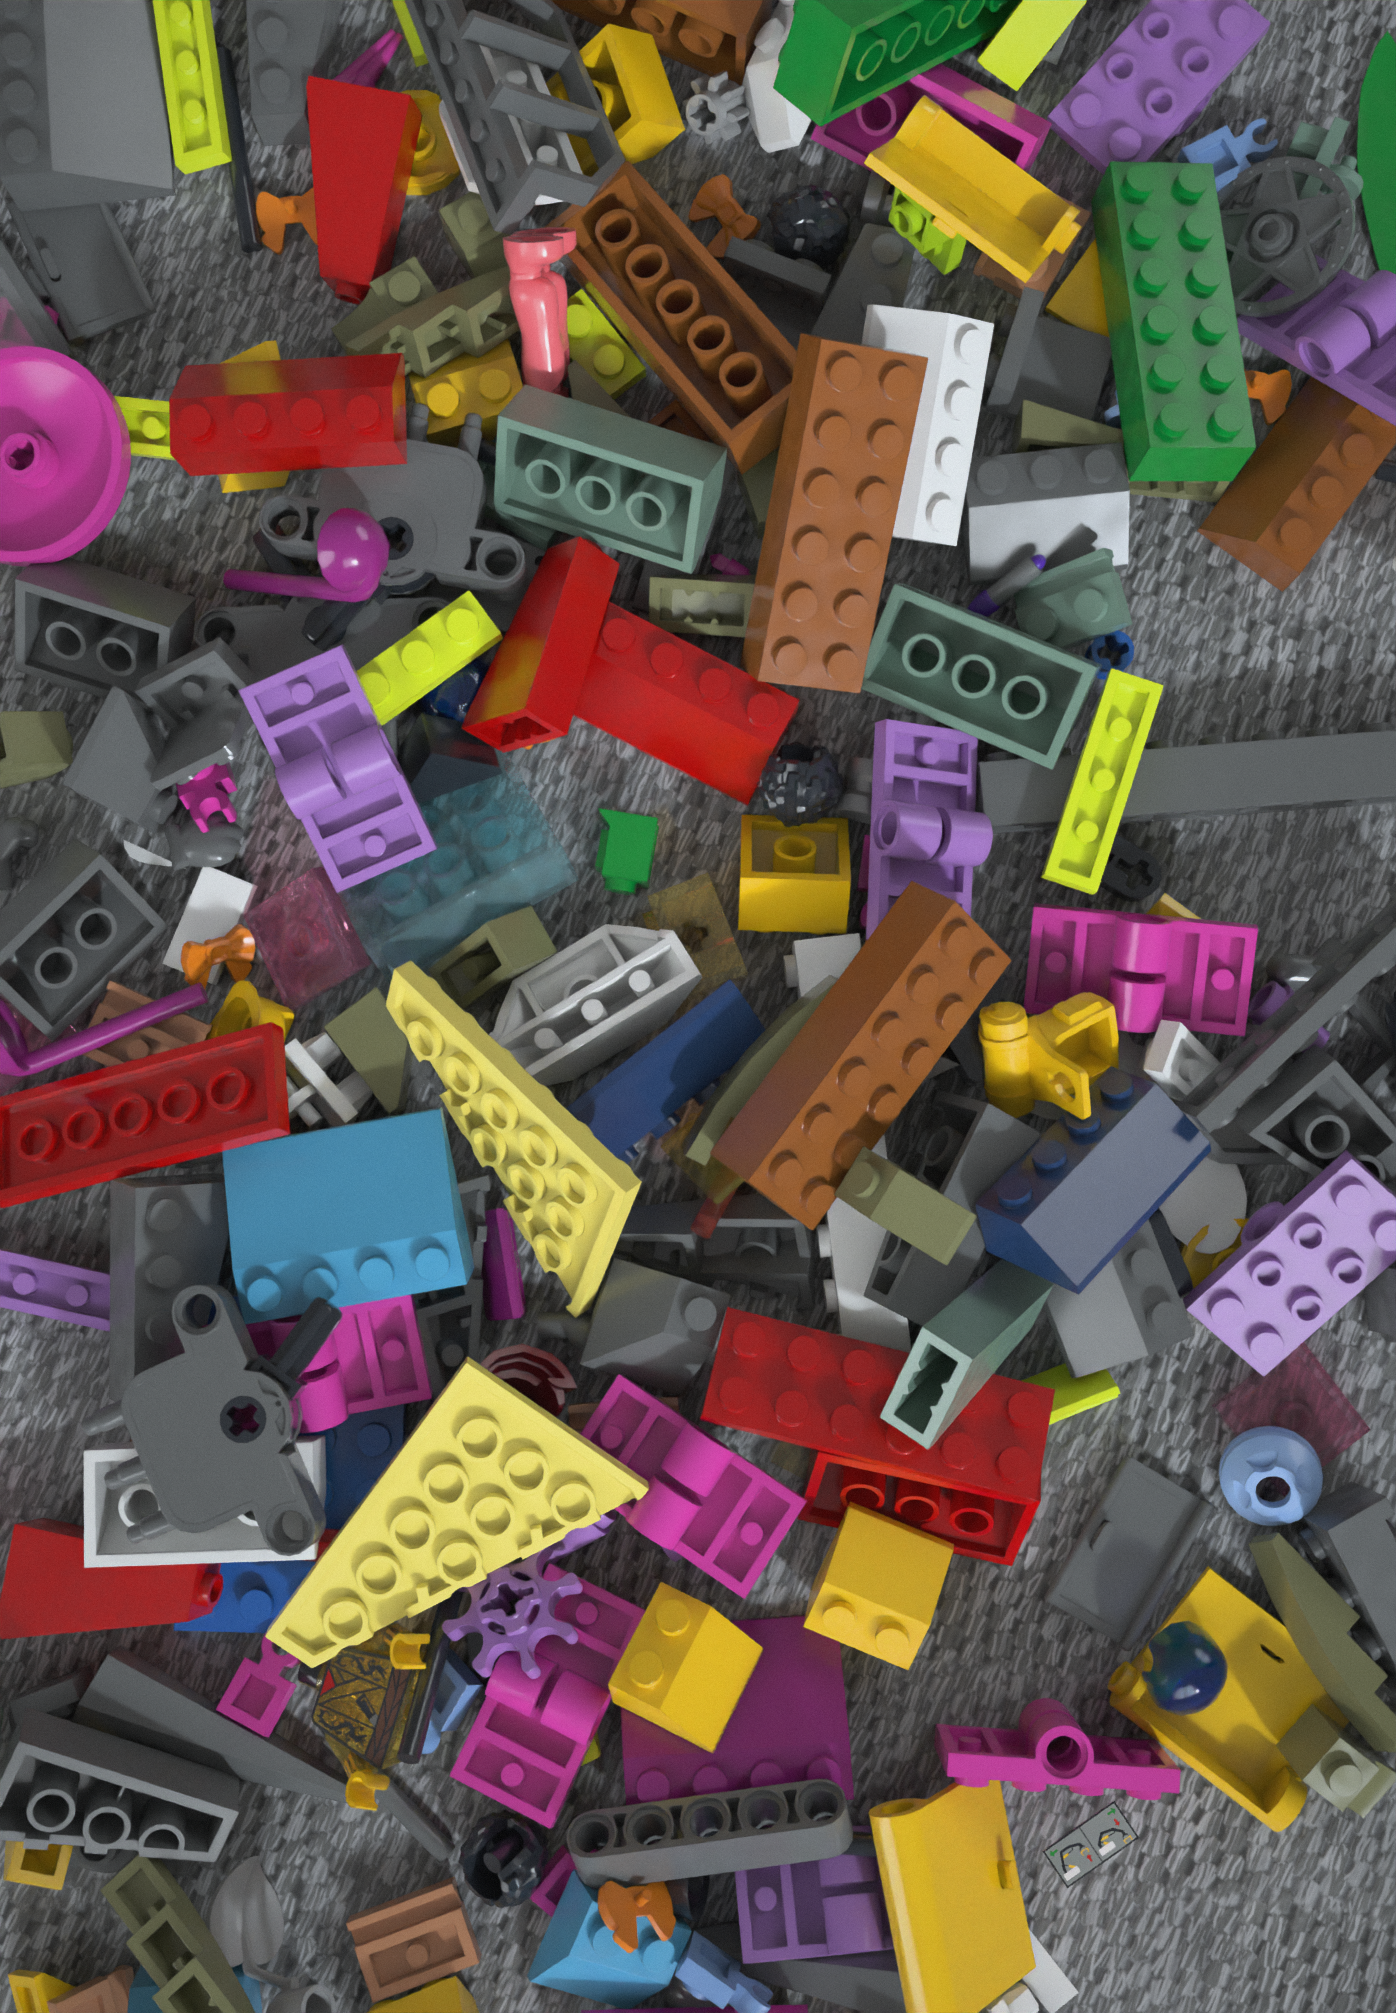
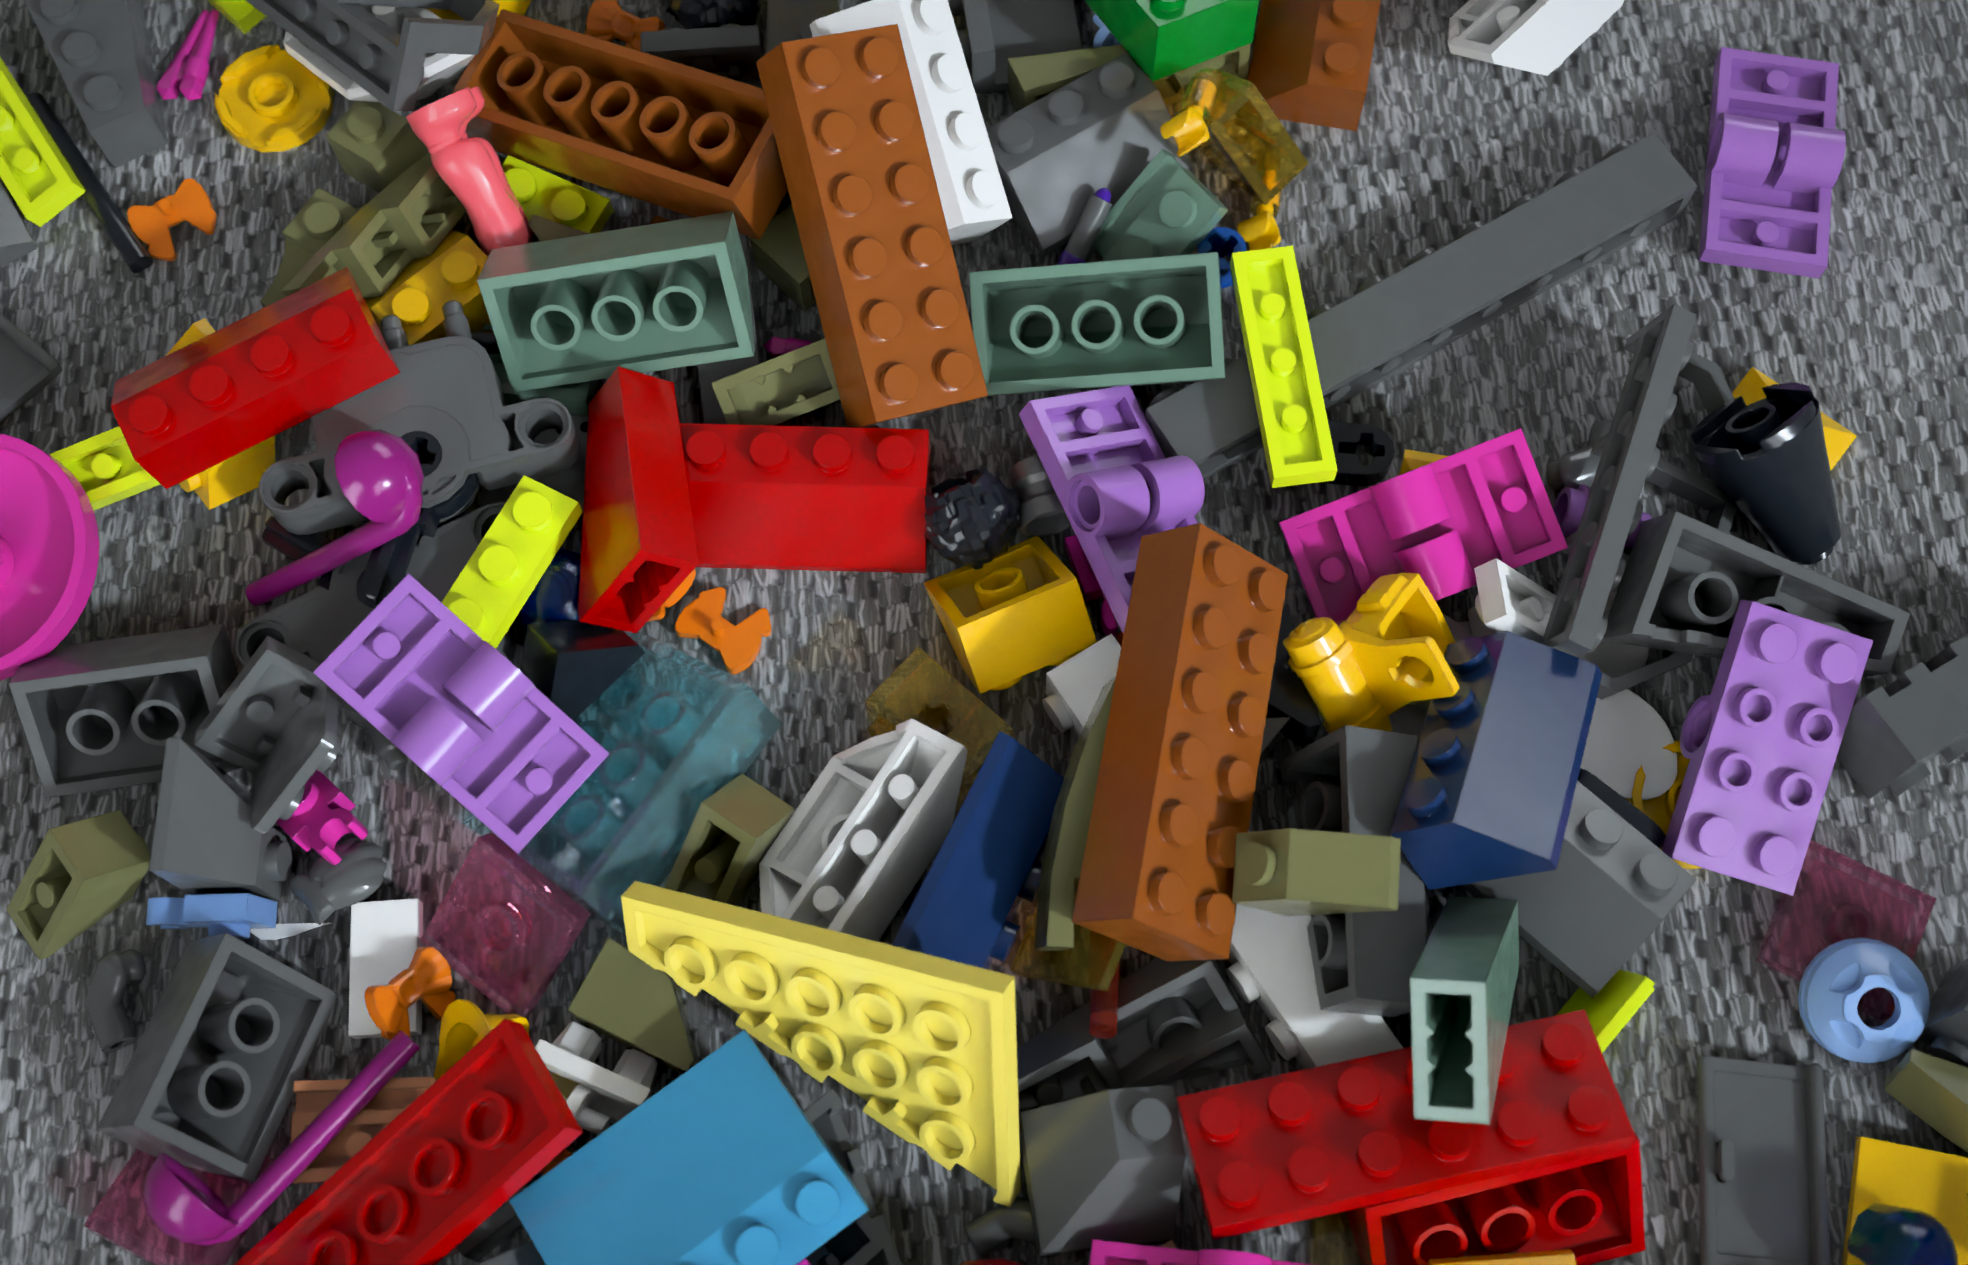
camera: 25 degrees left, 15 degrees down
(108, 831) = (217, 912): none -> medium blue plate
(361, 175) = (231, 144): red slope -> none
(501, 1269) = (897, 1194): magenta slope -> none
(575, 795) = (737, 643): none -> orange piece
(626, 851) = (818, 670): green window -> none
(1178, 565) = (1242, 142): none -> clear yellow torso

